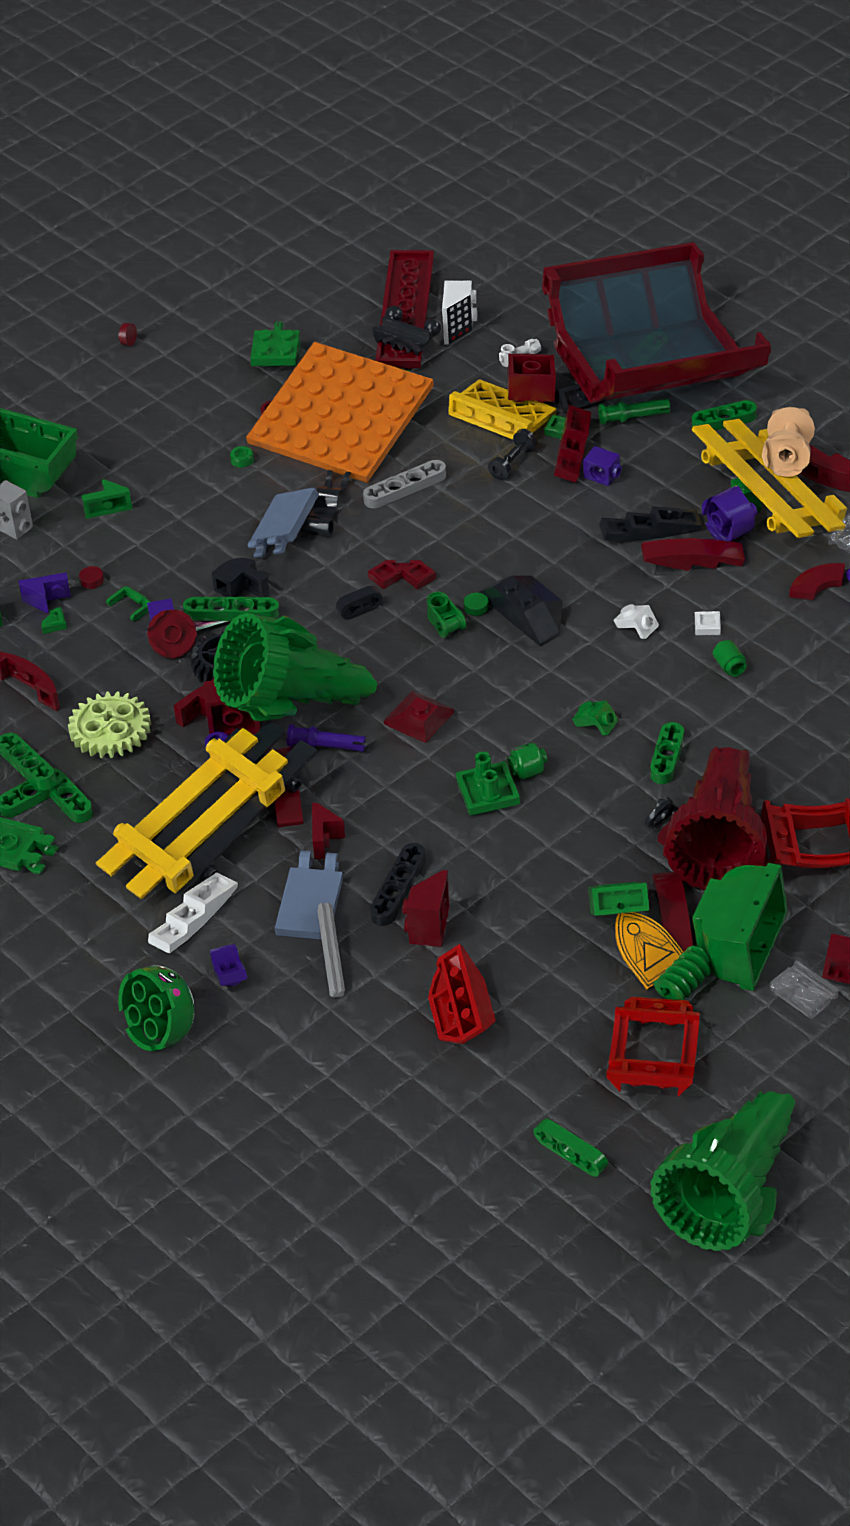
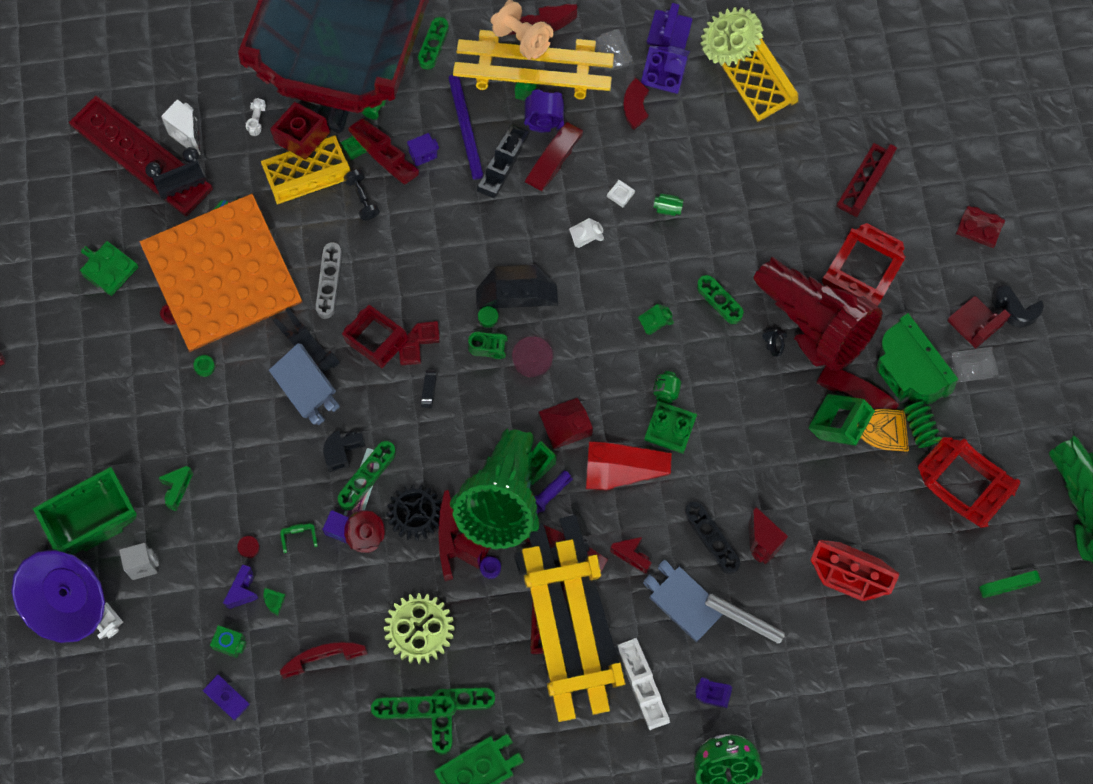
camera: 60 degrees left, 25 degrees up
(356, 715) = (541, 462): none -> green slope
(374, 547) = (387, 348): none -> dark red window
(408, 770) = (619, 465): none -> red wedge
(465, 655) = (532, 356): none -> clear pink tile
(660, 482) = (466, 128): none -> dark purple axle

